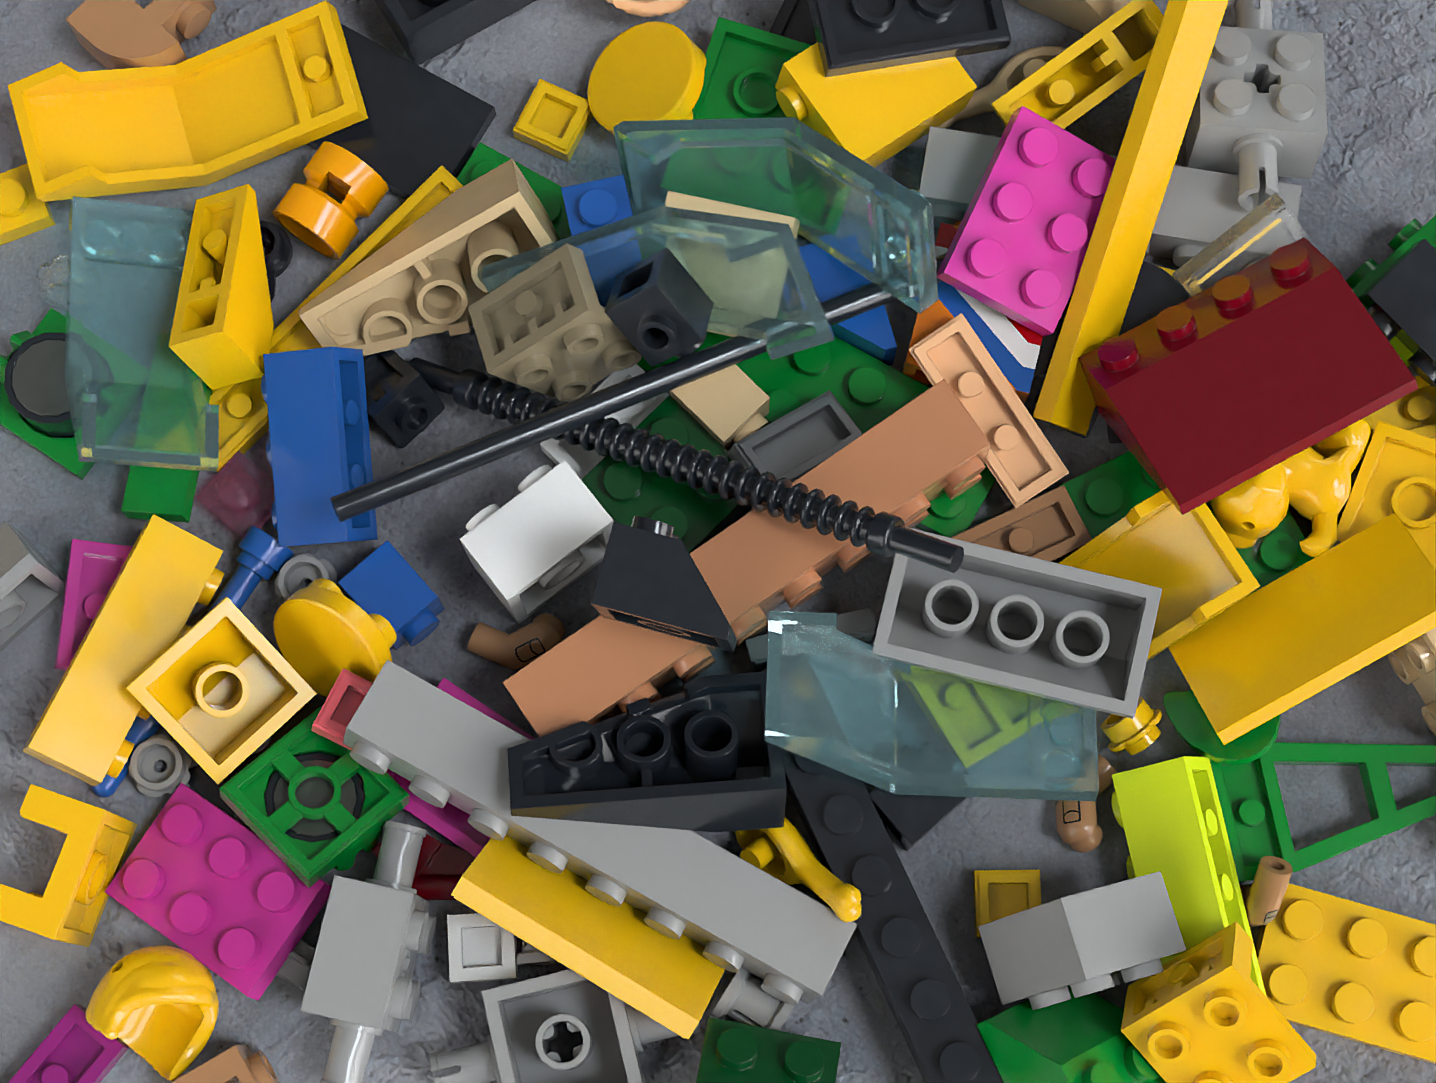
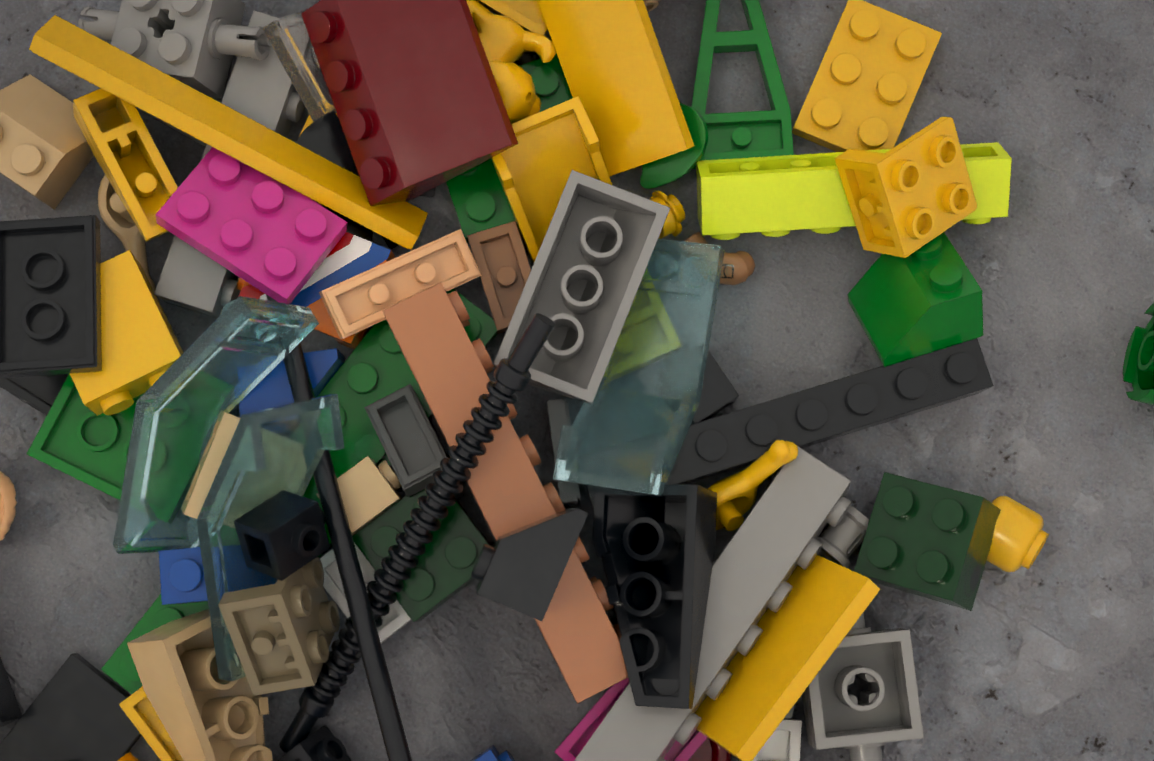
camera: 80 degrees left, 5 degrees up
(521, 646) = (536, 683): medium nougat arm -> none
(538, 539) = (454, 660): white brick -> none
(553, 120) = (90, 604): yellow tile -> none
(646, 76) = (71, 521): yellow tile -> none
(1003, 894) = (785, 331): yellow tile -> none
(1083, 942) = (832, 276): light grey brick -> none
(1267, 891) = (805, 135): medium nougat arm -> none

